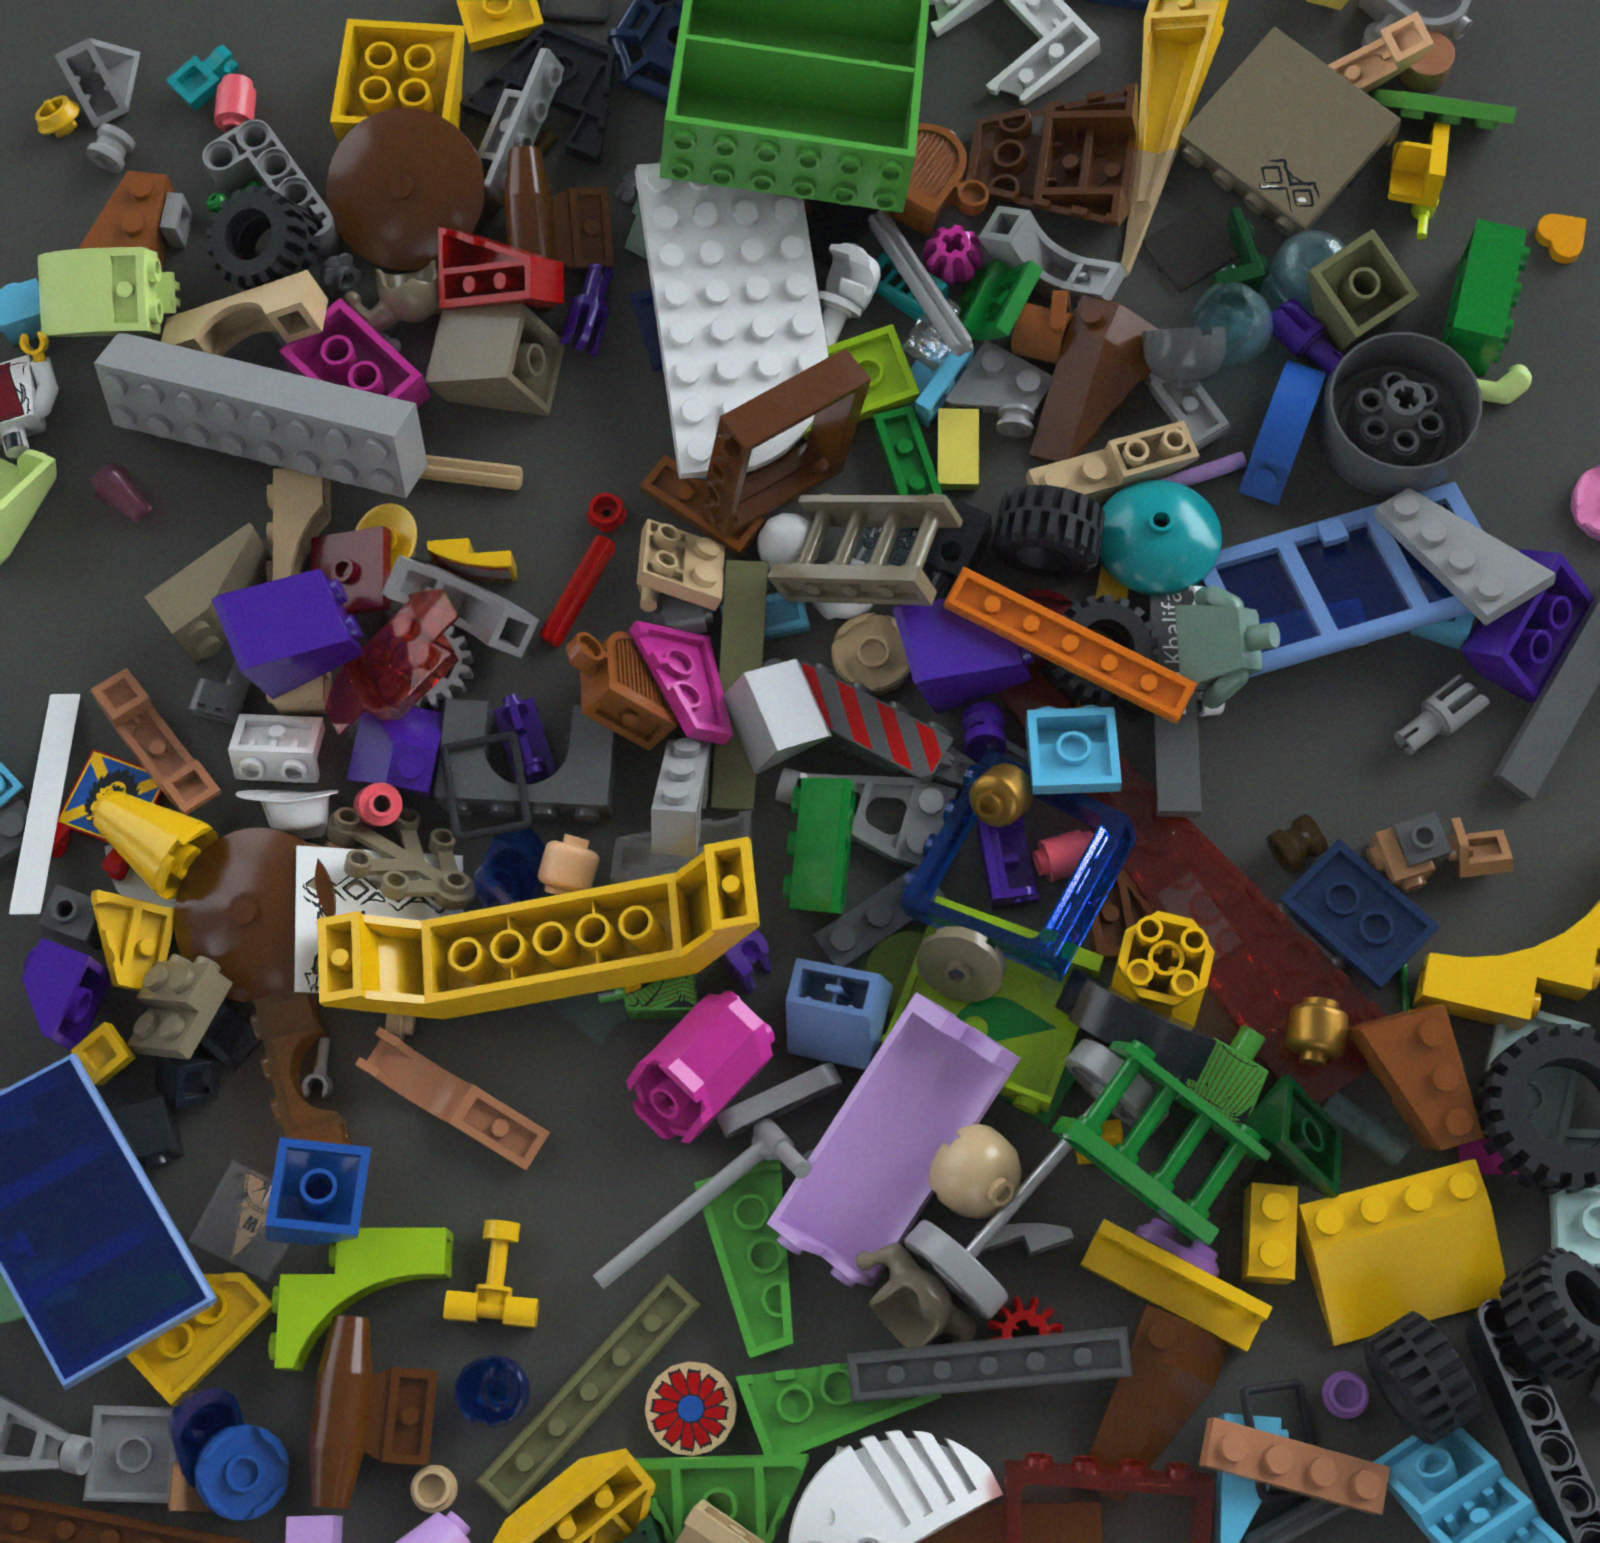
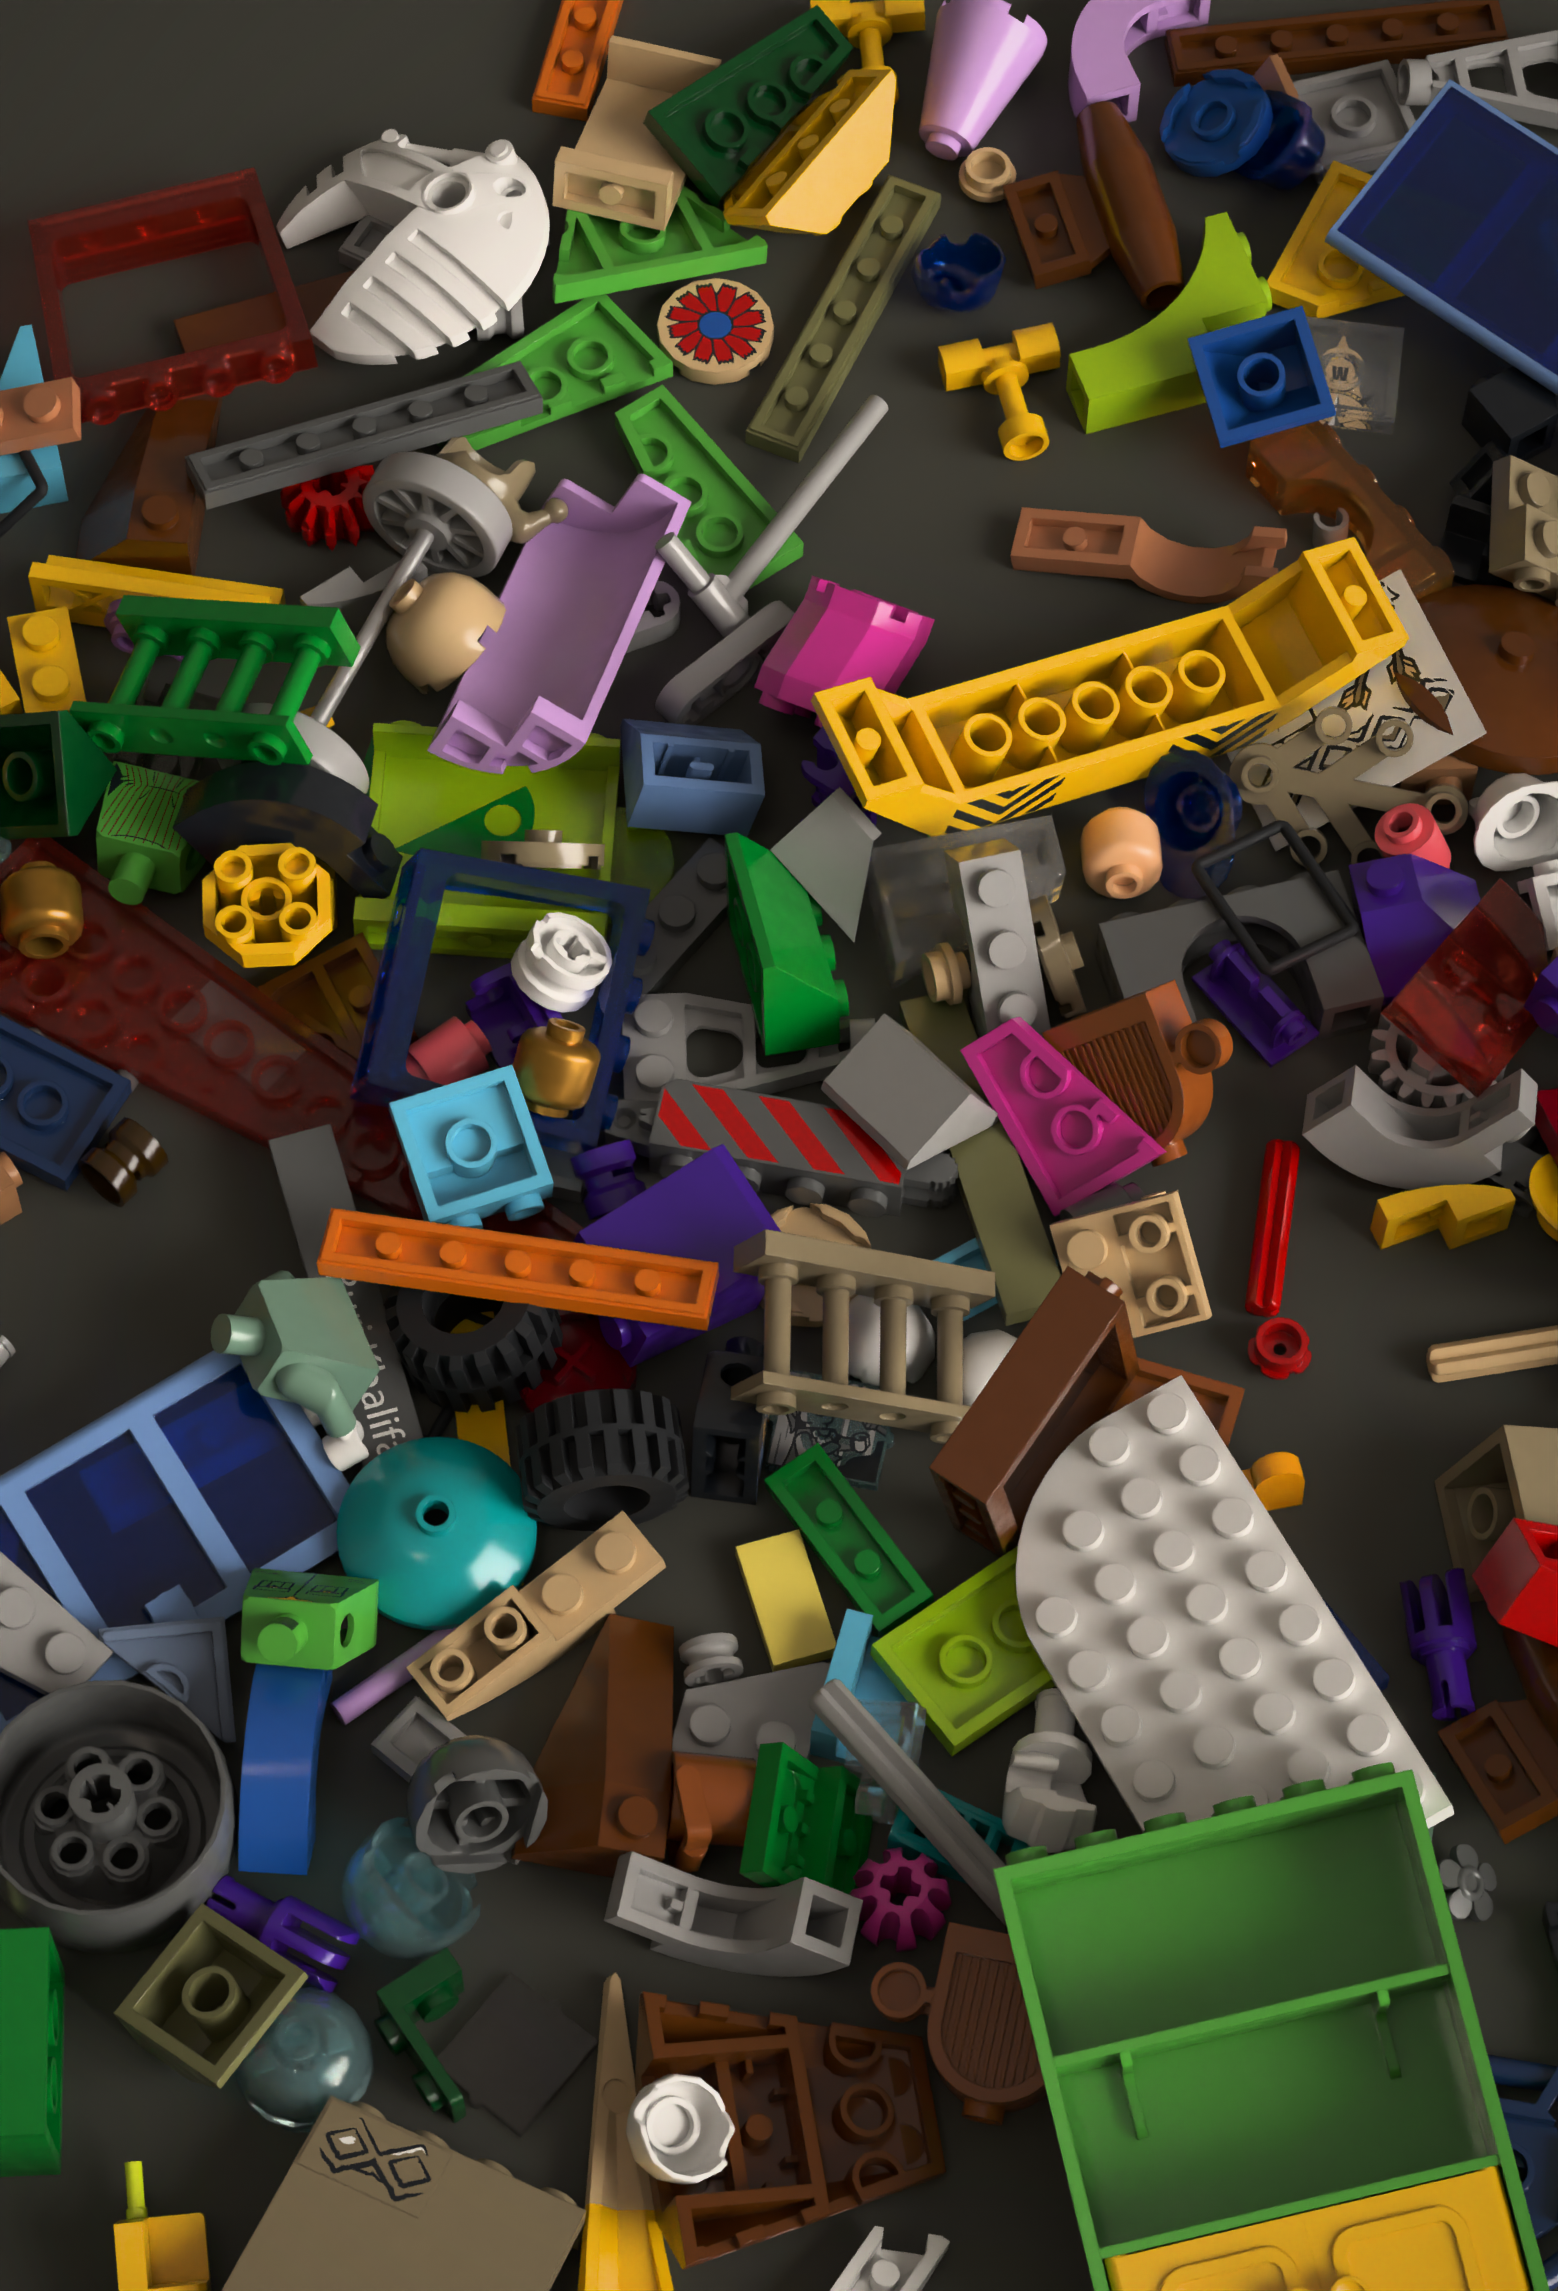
camera: 155 degrees right, 10 degrees down
(641, 790) = (1059, 958): none -> dark tan plate
(649, 427) = (1277, 1480): none -> light orange tile
(719, 801) = (945, 974): none -> tan plate
(778, 903) = (832, 857): none -> light grey slope
(990, 873) = (561, 962): none -> white wheel
(1118, 153) = (679, 2129): none -> white hair
(1257, 487) = (299, 1618): none -> bright green torso
(1334, 500) = (183, 1662): none -> sand blue tile

